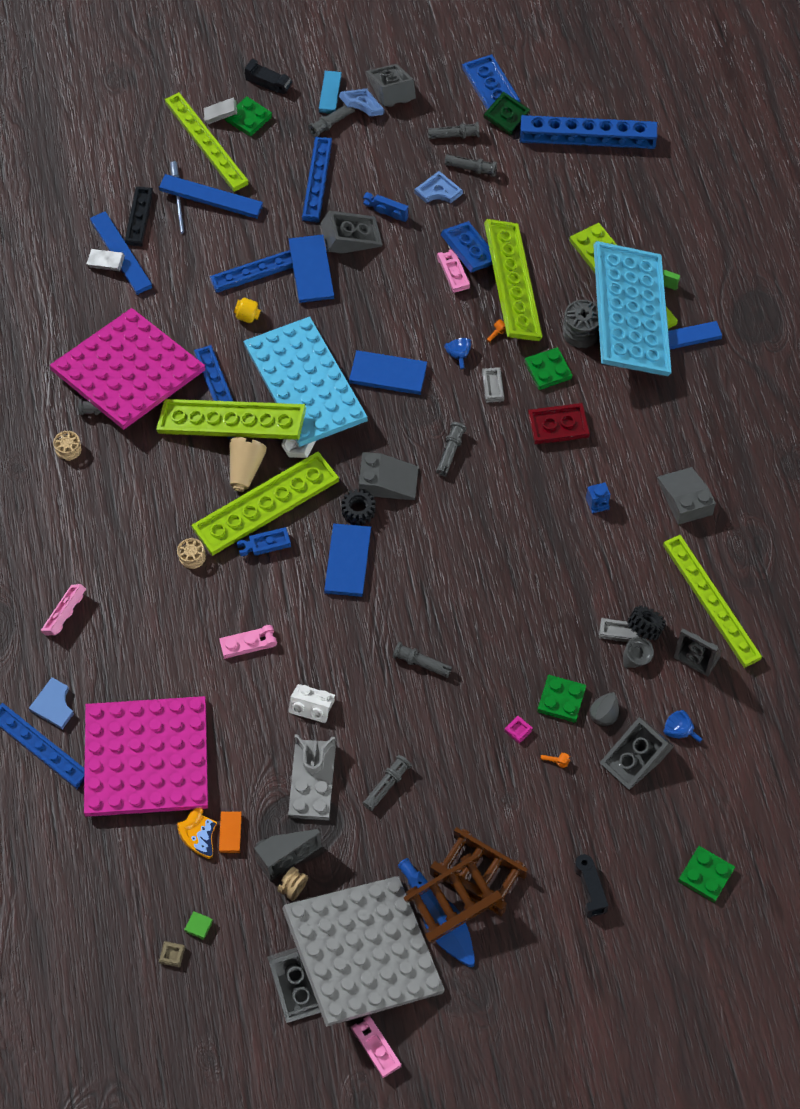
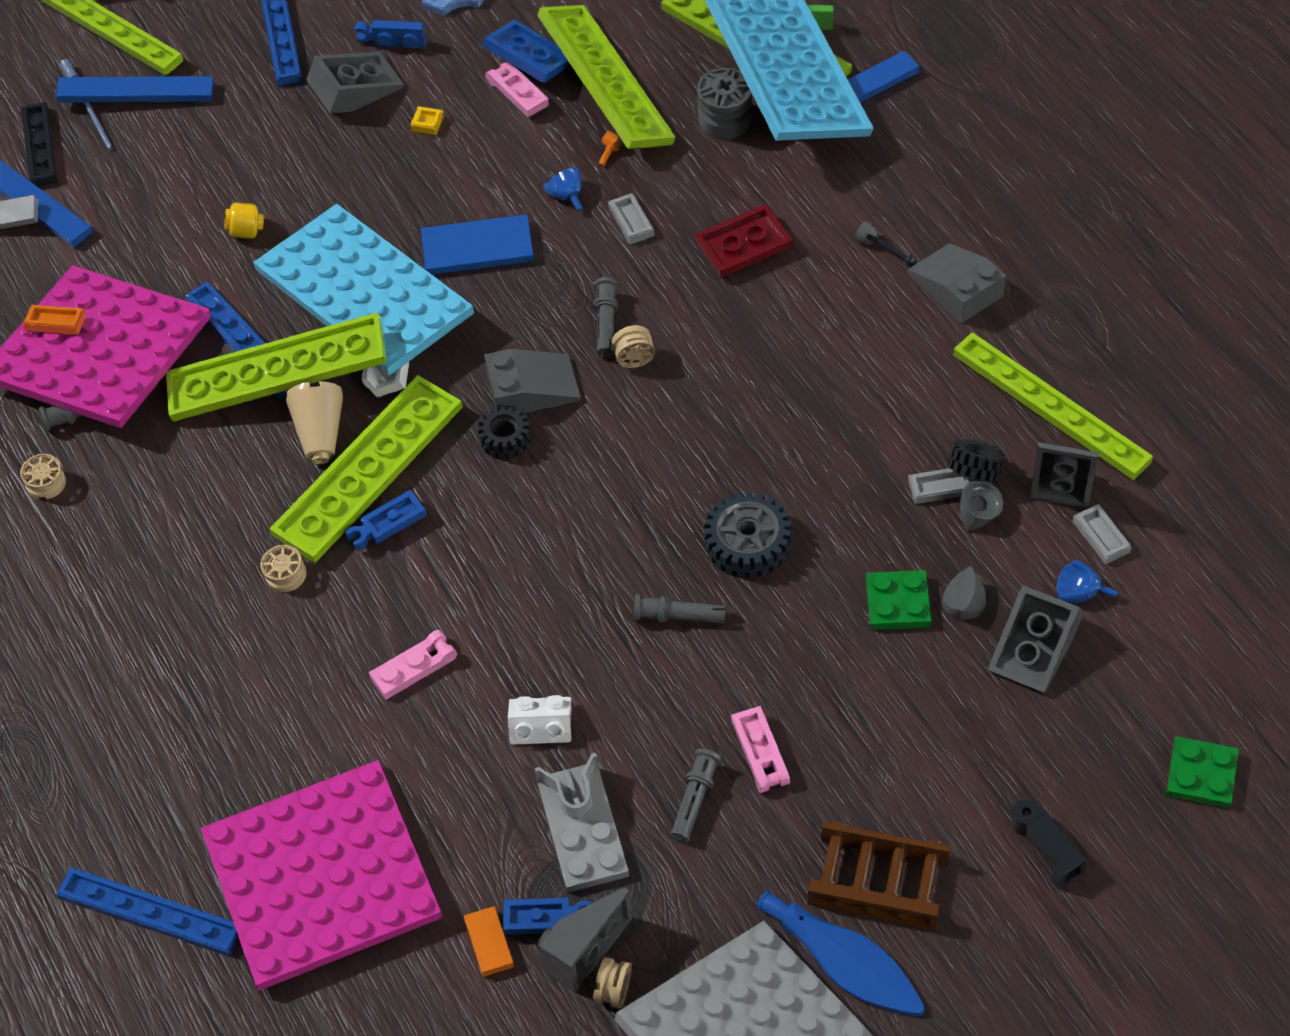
camera: 15 degrees left, 5 degrees down
(52, 704) = (148, 845): medium blue tile -> none
(63, 610) = (119, 705): bright pink plate -> none
(107, 343) = (54, 319): none -> orange tile
(197, 832) = (439, 958): light orange arm -> none
(251, 271) = (243, 162): blue tile -> none
(265, 826) = (536, 915): none -> blue plate
(311, 268) = (315, 141): blue tile -> none
(347, 560) = (516, 508): blue tile -> none
(388, 275) = (427, 120): none -> yellow tile
(438, 766) = (760, 748): none -> bright pink plate
(460, 474) = (633, 344): none -> tan wheel
(471, 908) = (872, 952): reddish brown fence -> none
(480, 637) = (747, 553): none -> wheel
(518, 729) = (853, 661): dark pink tile -> none
(548, 368) = (699, 175): green plate -> none
(562, 761) = (933, 685): orange hand -> none
(598, 497) = (838, 318): blue brick -> none
(640, 444) = (868, 234): none -> hinge
(709, 697) = (1102, 534): none -> light grey tile

